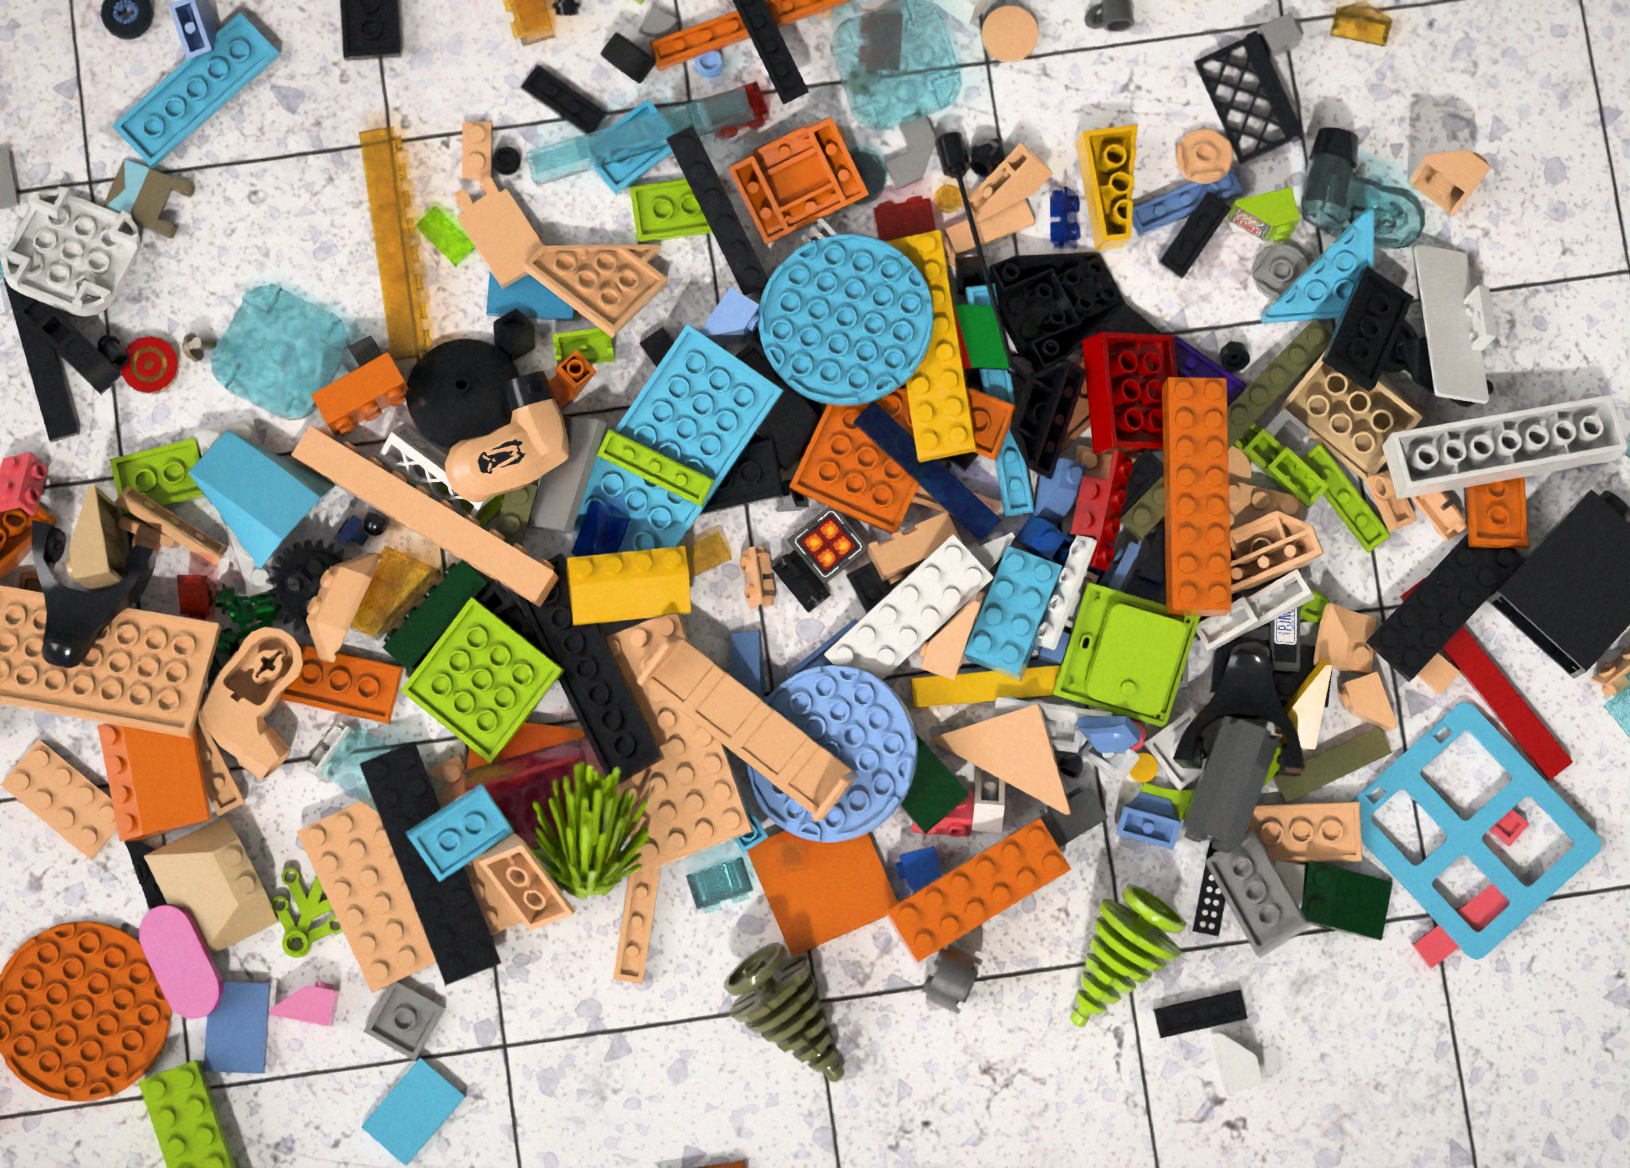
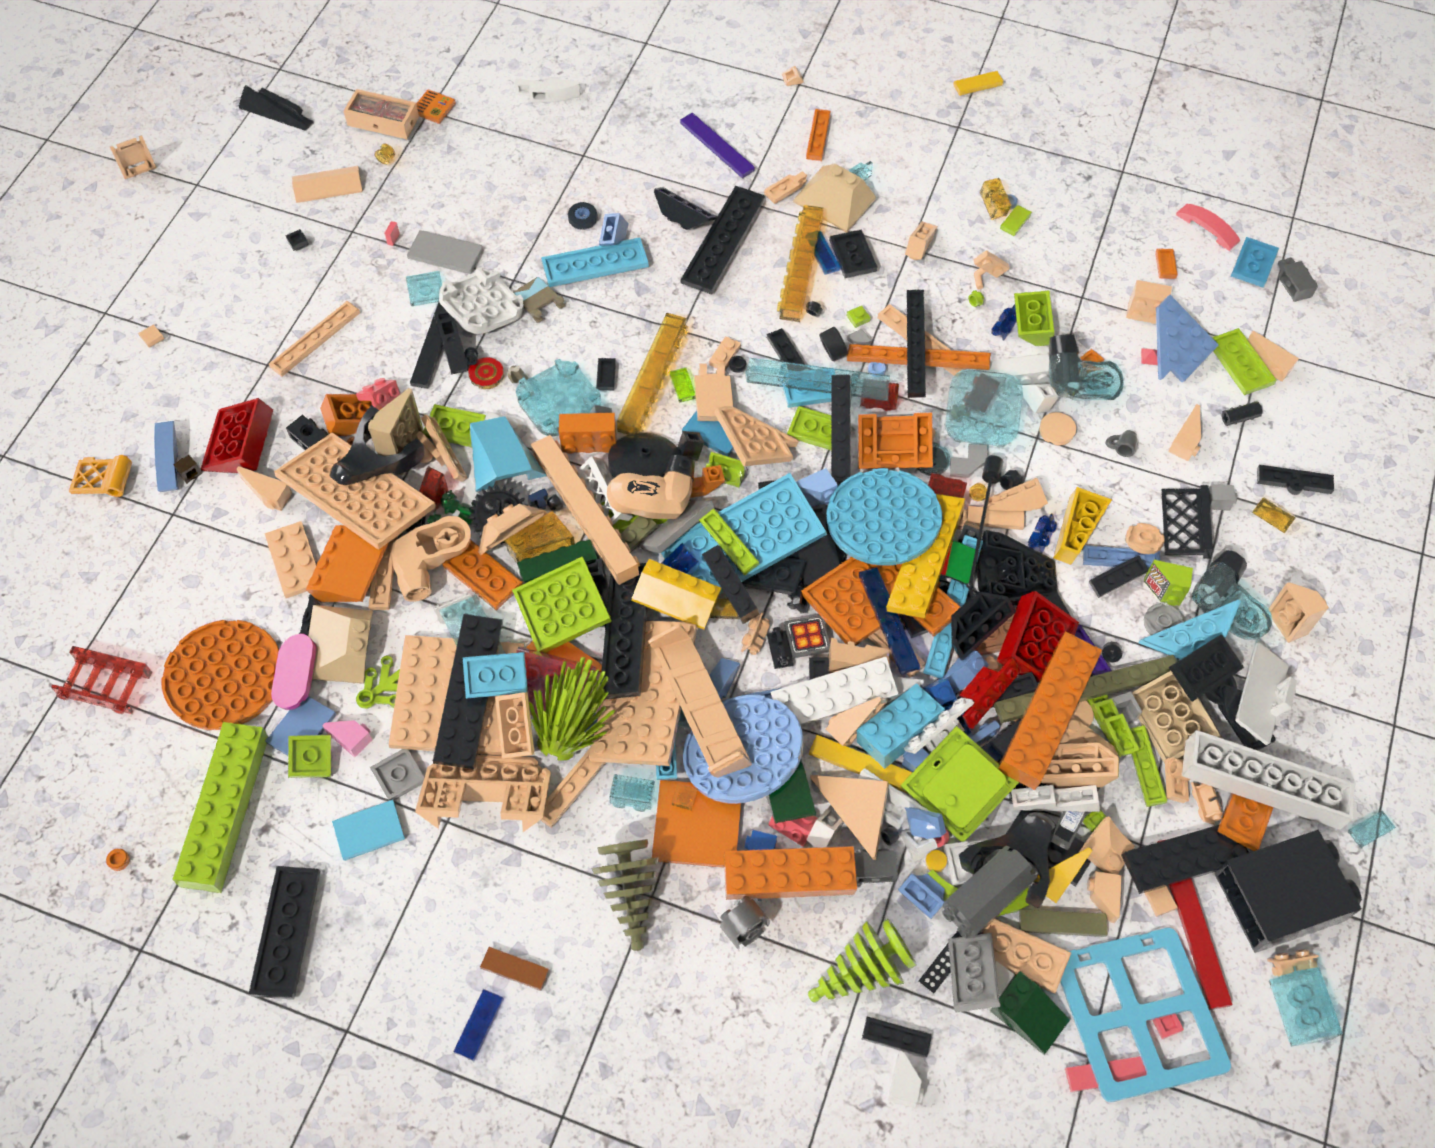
camera: 30 degrees right, 20 degrees down
(277, 1061) = (309, 756): none -> lime plate
(324, 275) = (606, 374): none -> black tile
(532, 961) = (512, 780): none -> light nougat slope
(692, 532) = (730, 584): none -> black brick

